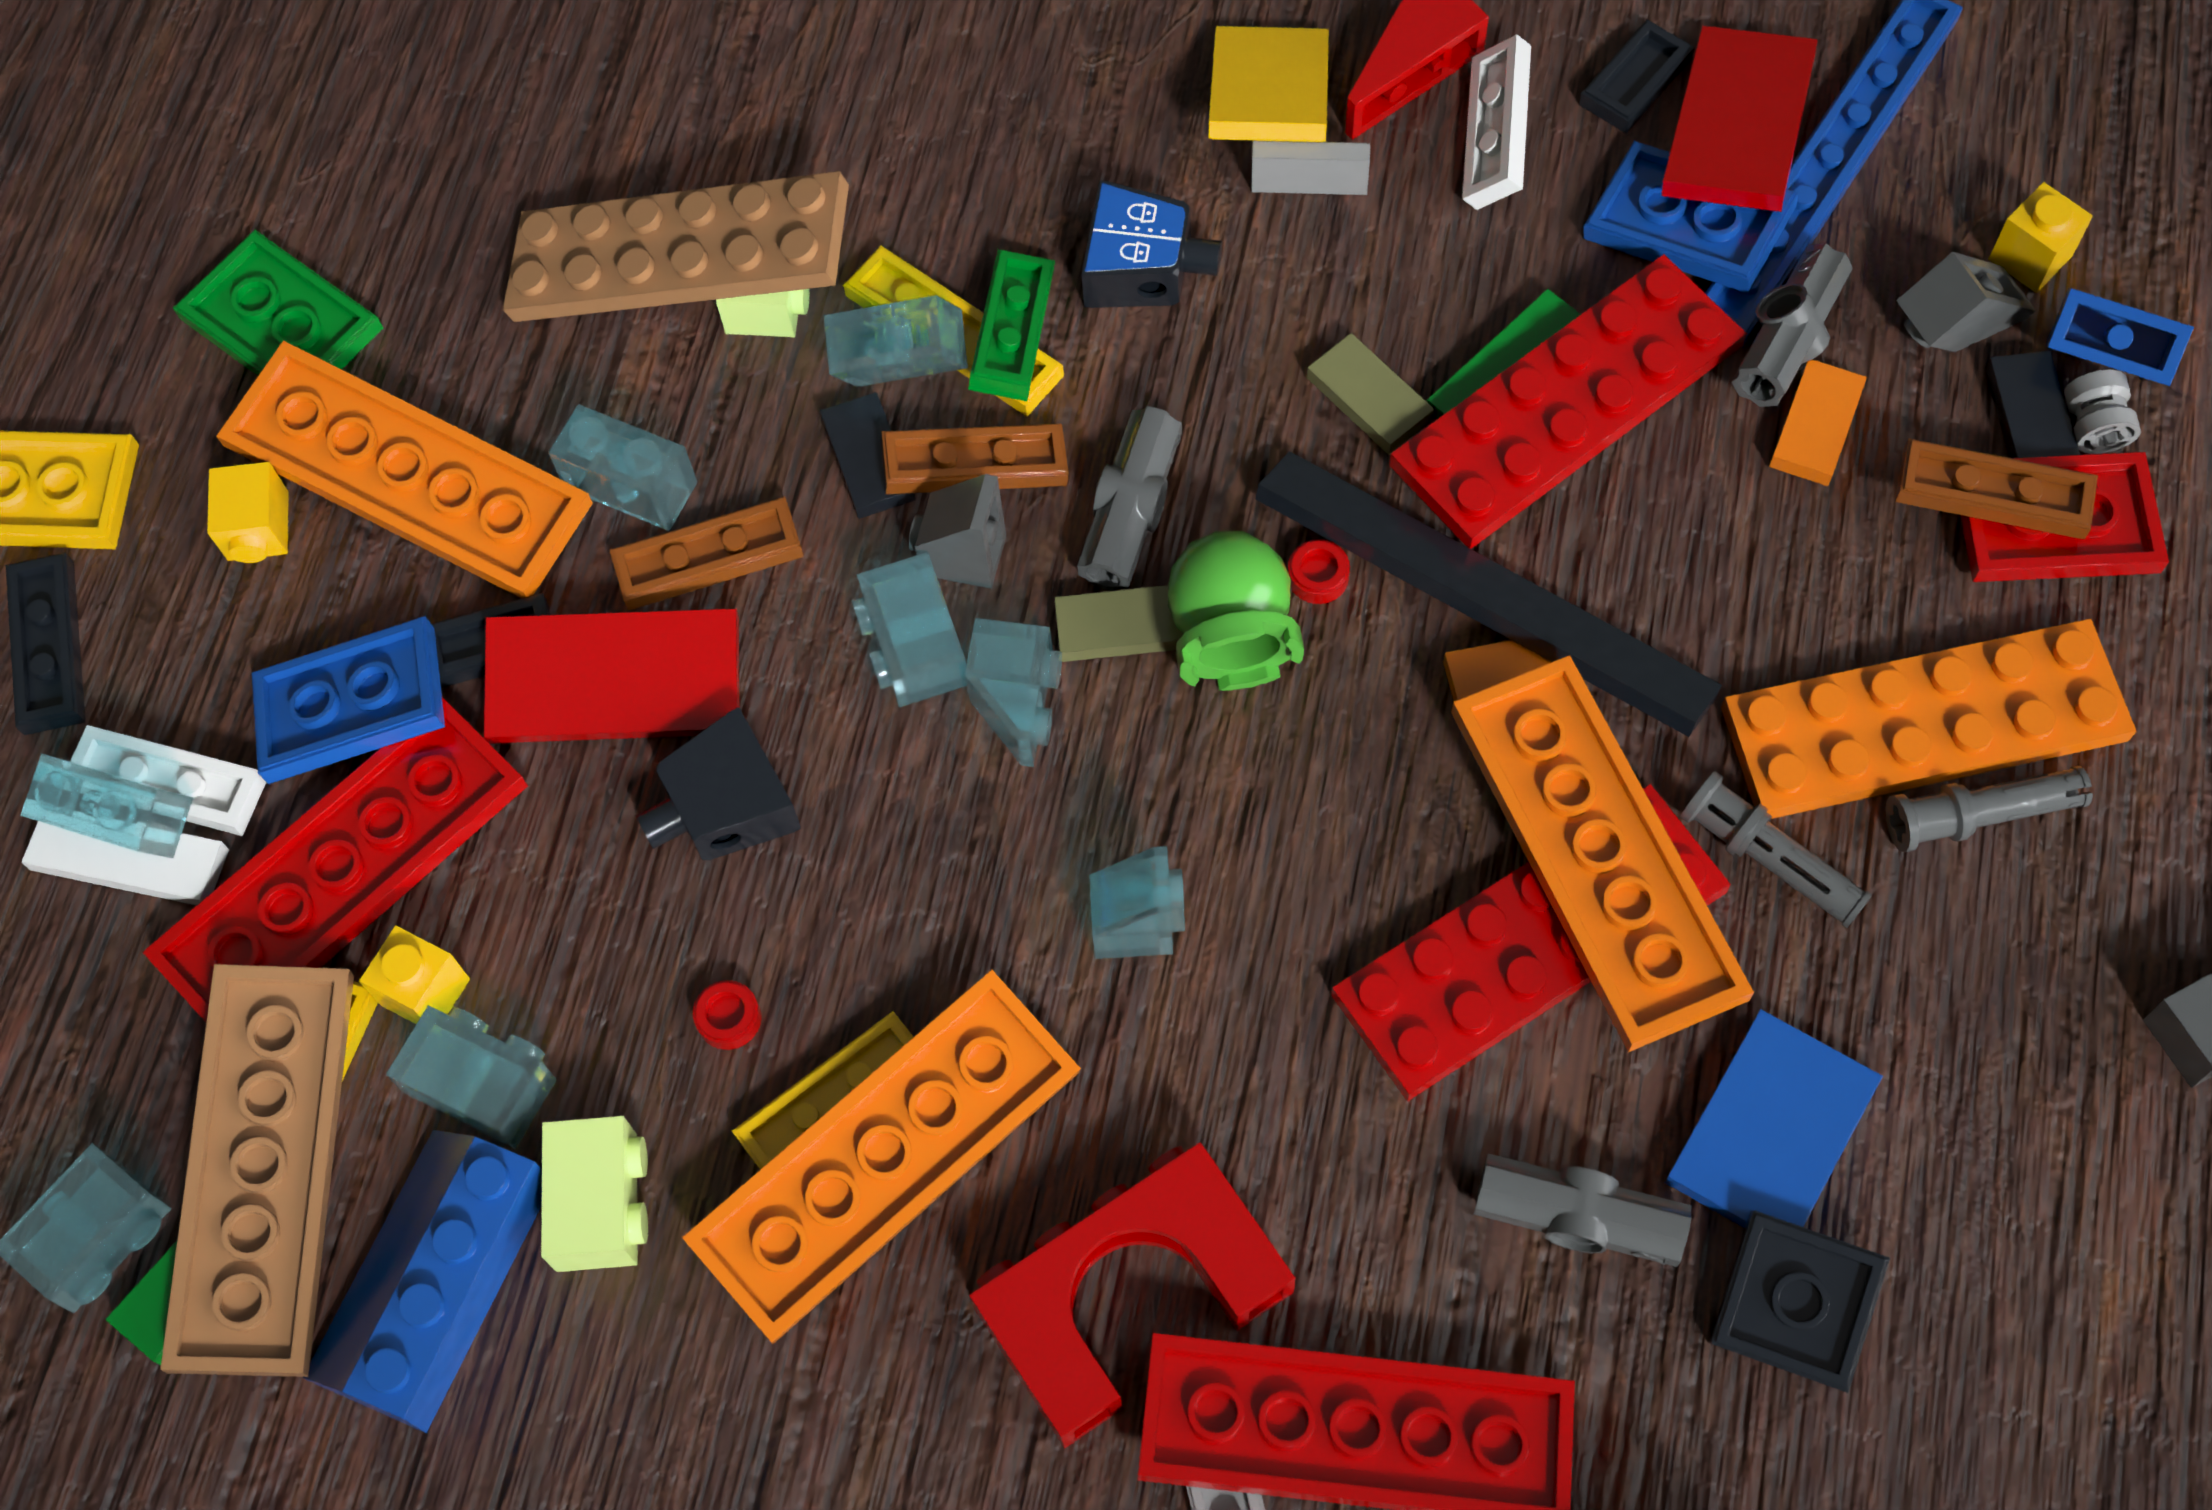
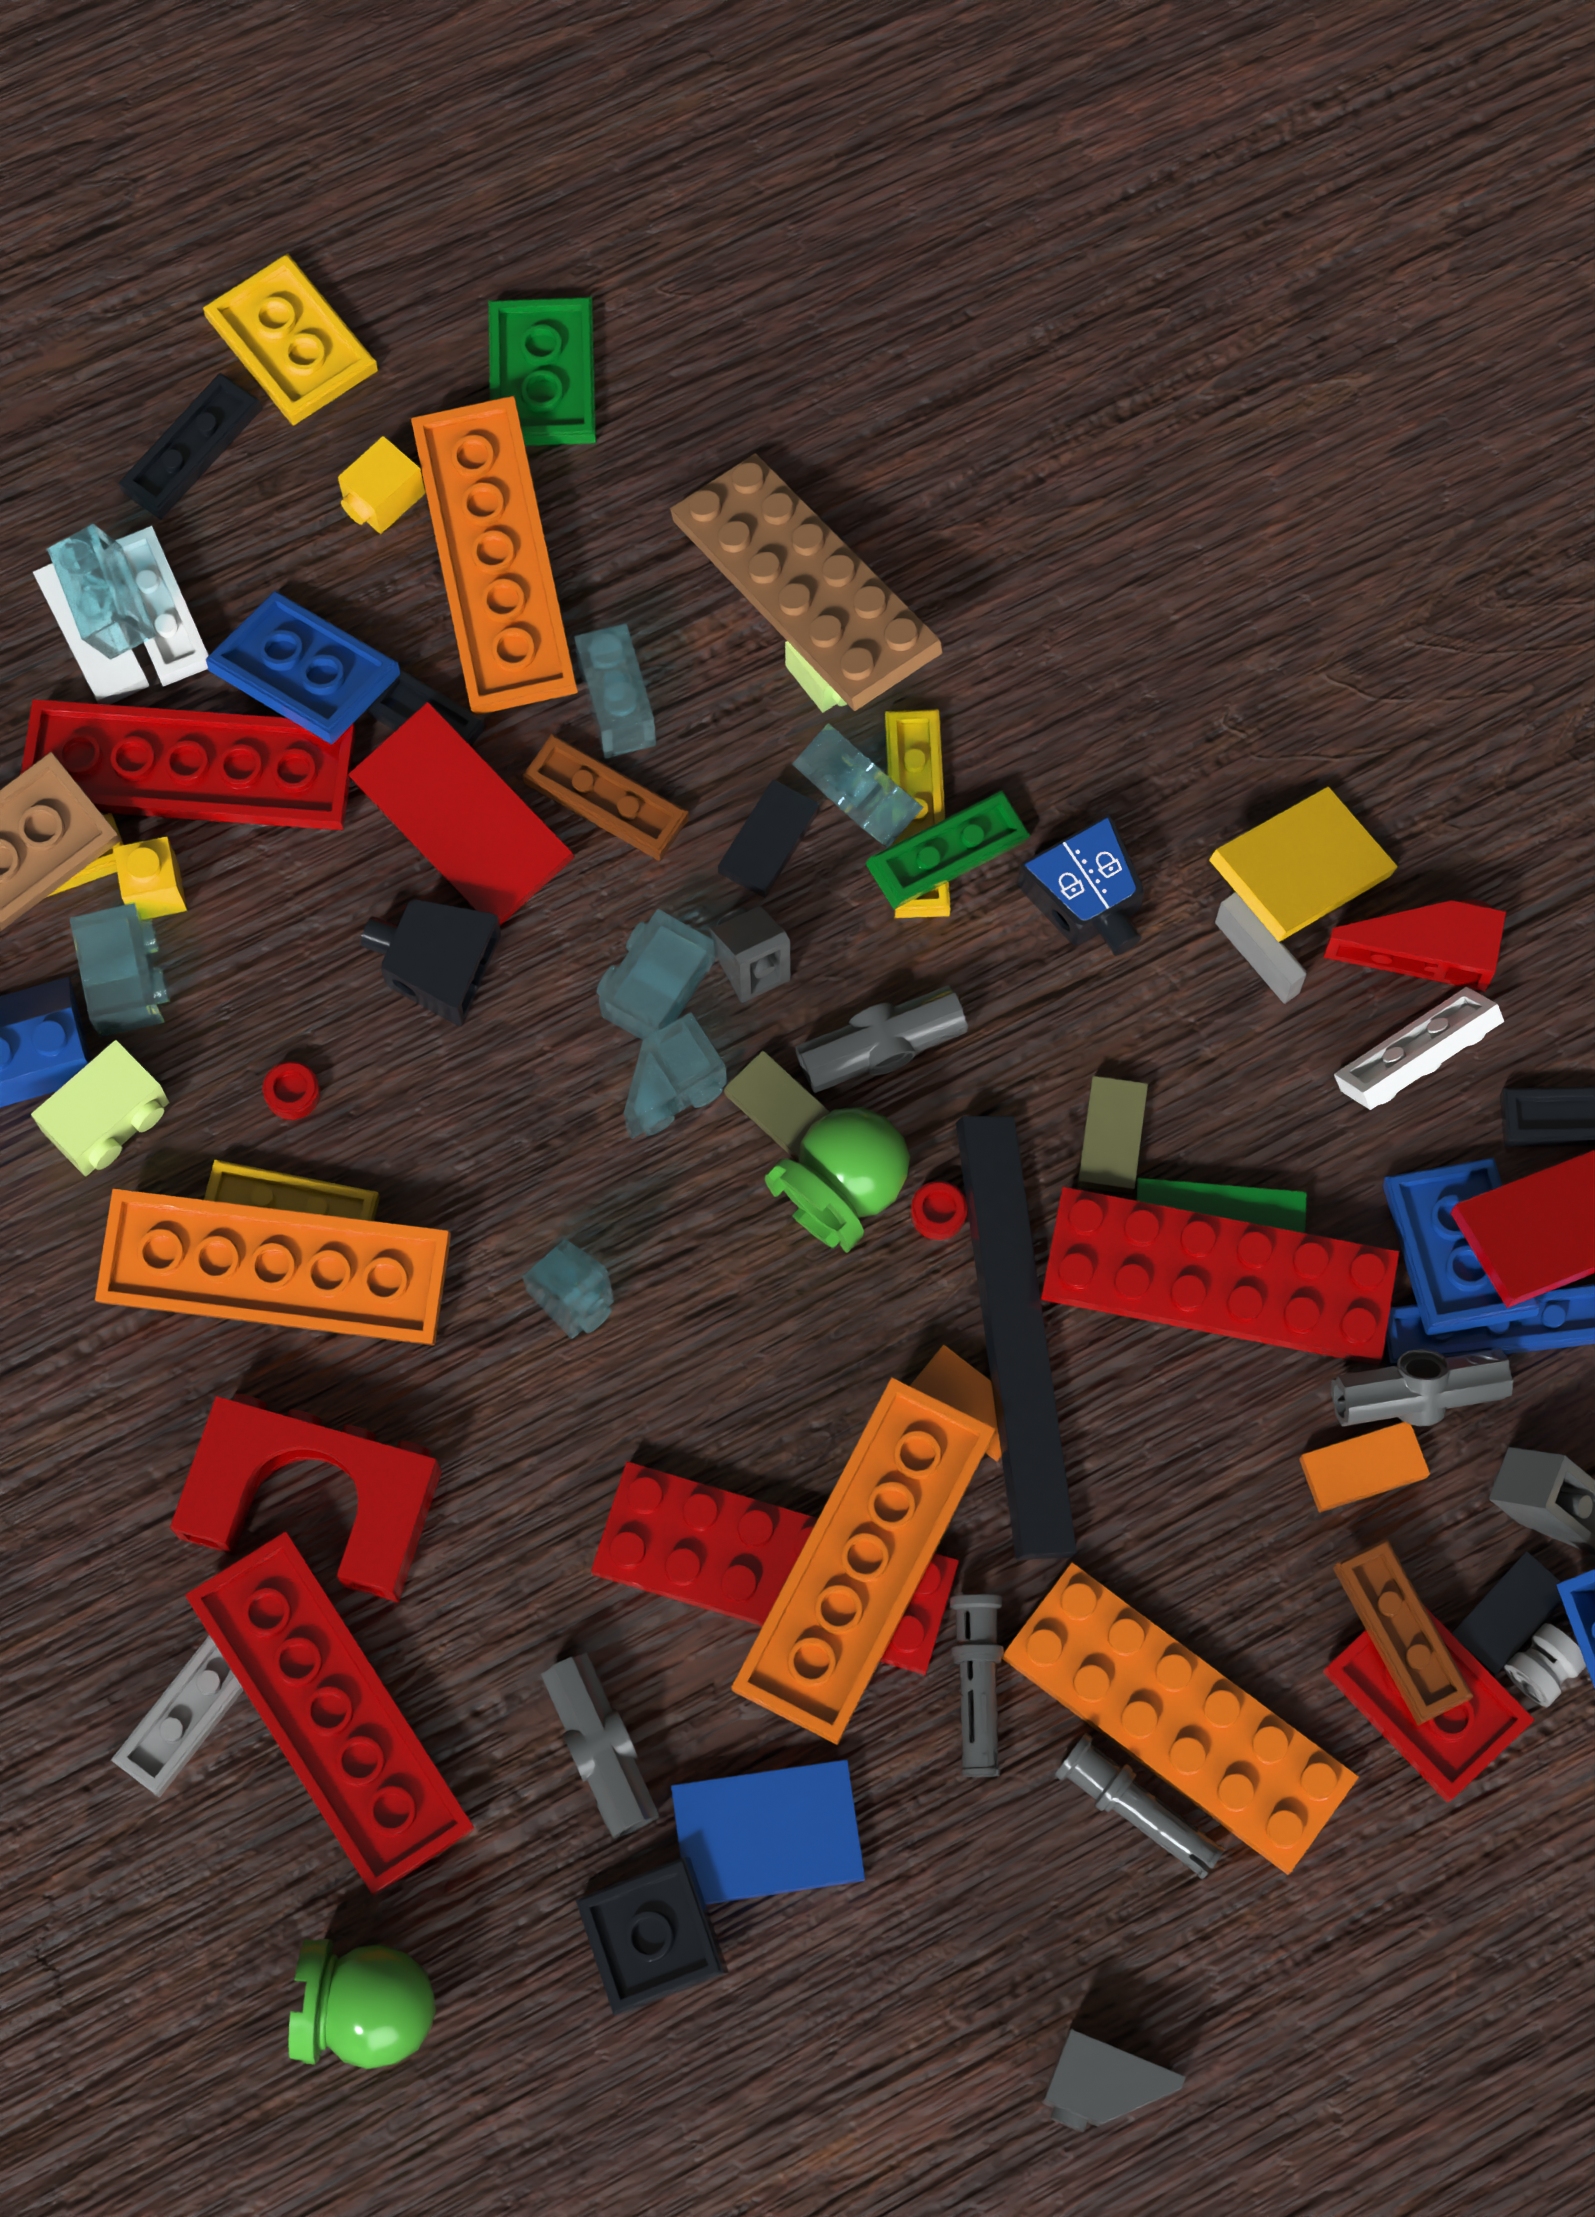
camera: 45 degrees right, 5 degrees up
(944, 457) = (823, 911): dark orange tile -> none

